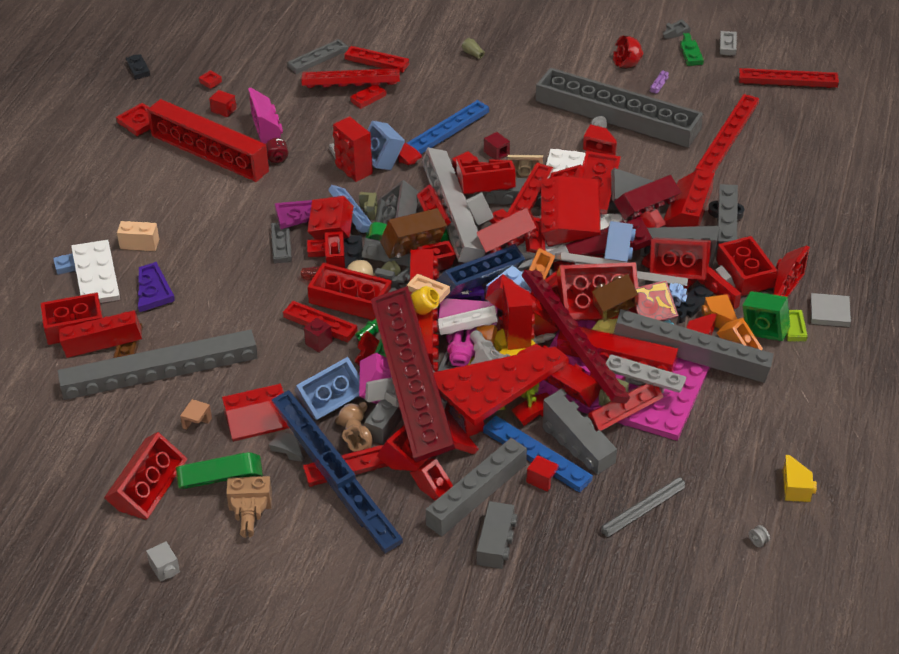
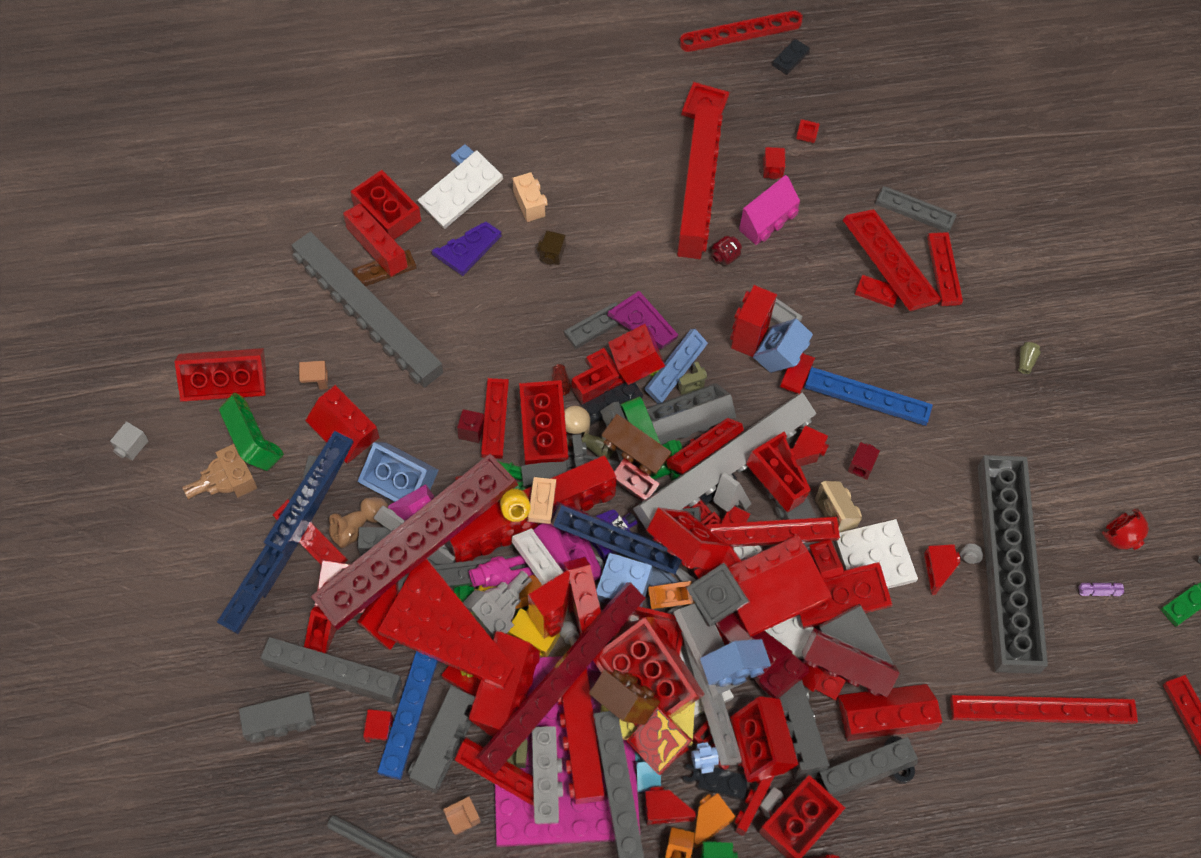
camera: 60 degrees right, 20 degrees up
(106, 57) = (734, 36): none -> red beam
(195, 239) = (552, 247): none -> dark brown brick
(560, 234) = (717, 594): none -> dark grey tile
(644, 446) = (461, 815): none -> nougat panel

